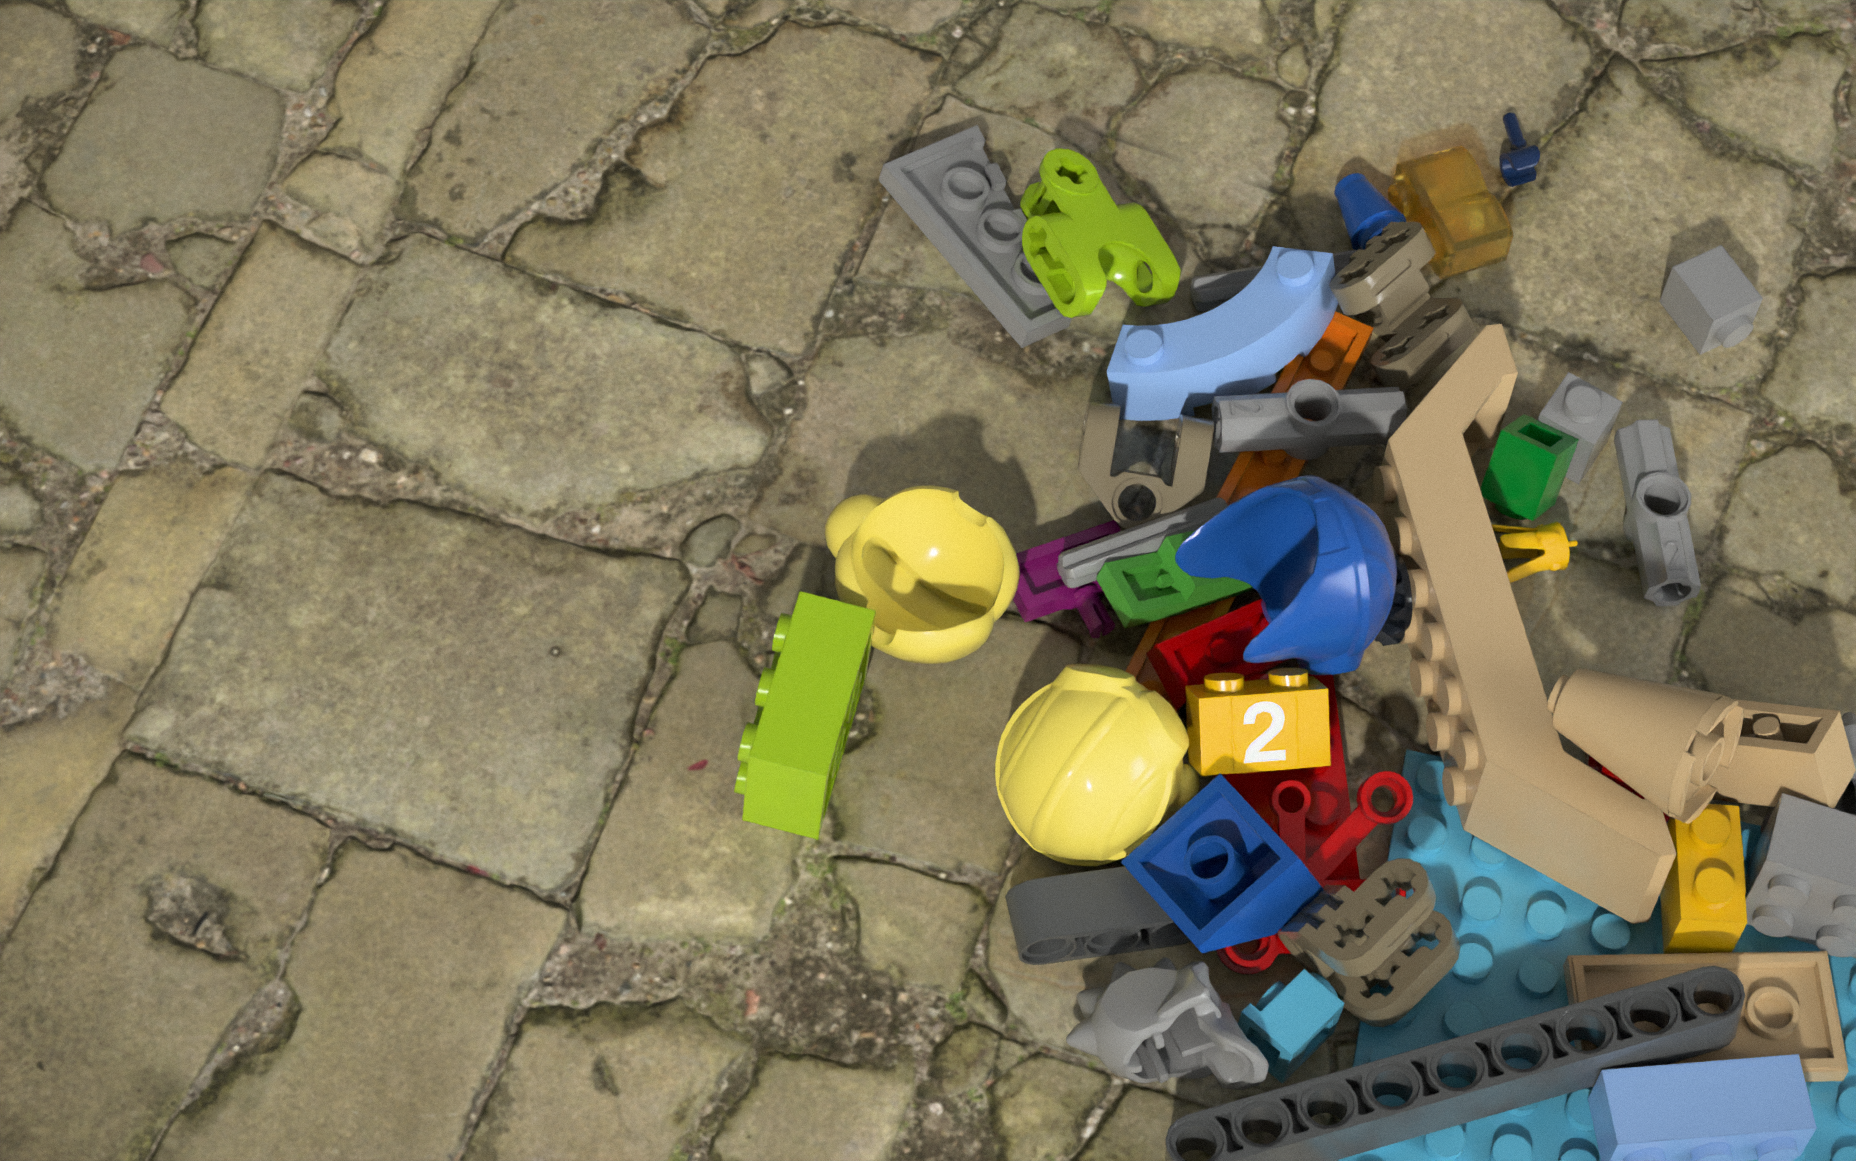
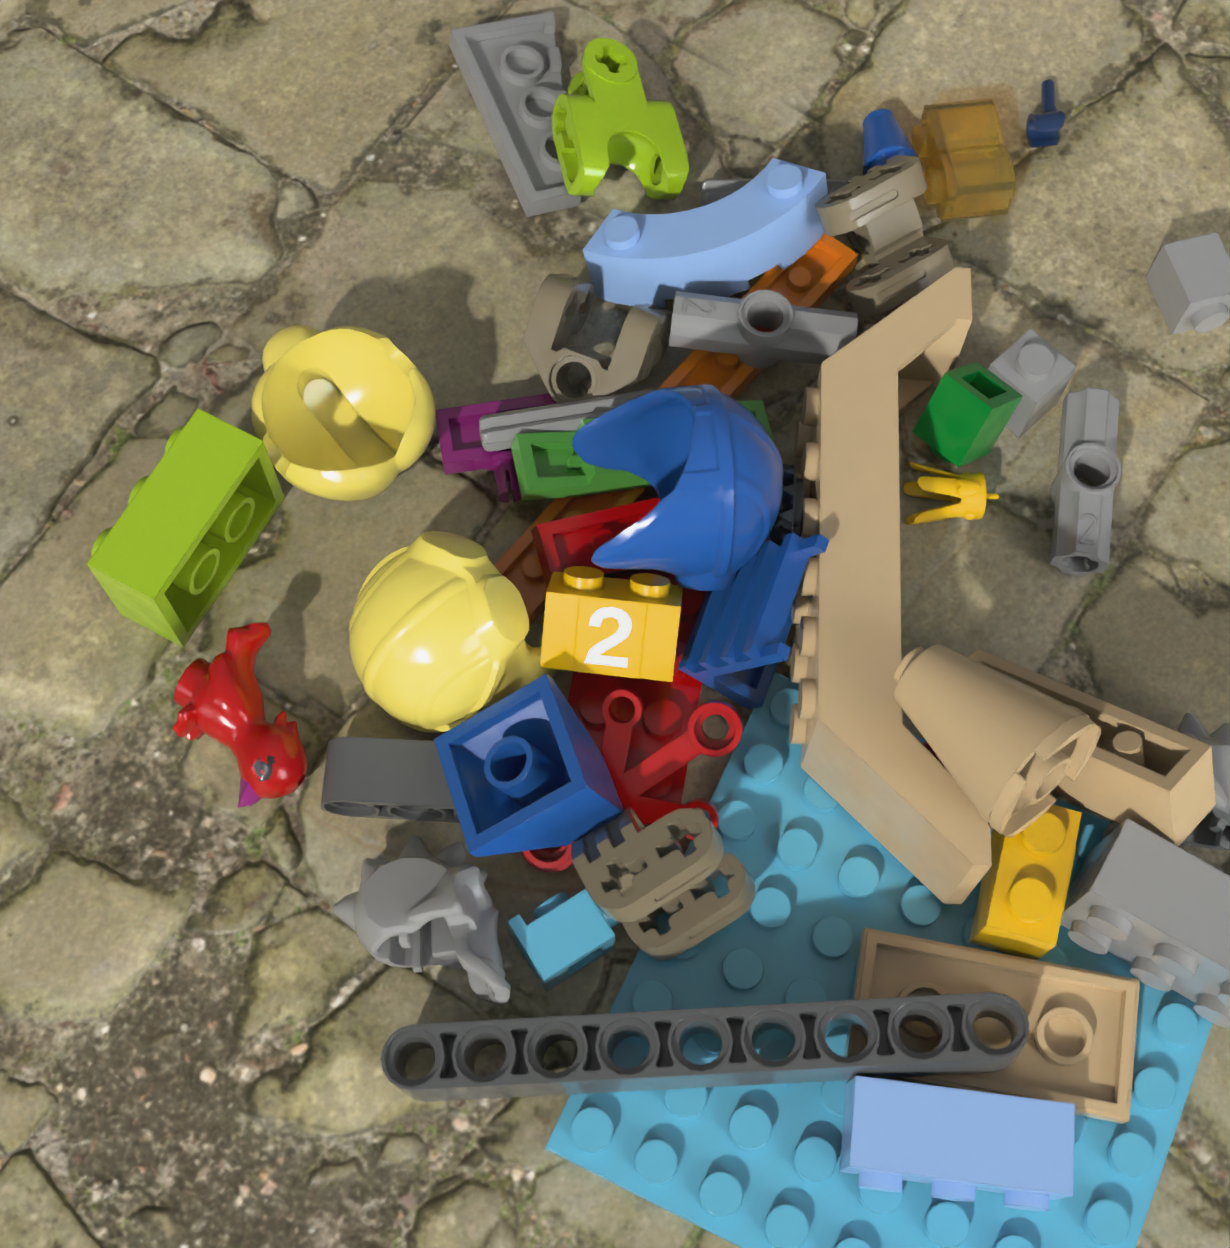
camera: 20 degrees right, 10 degrees up
(901, 882) = (229, 708): none -> red animal
(1387, 695) = (746, 625): none -> blue plate

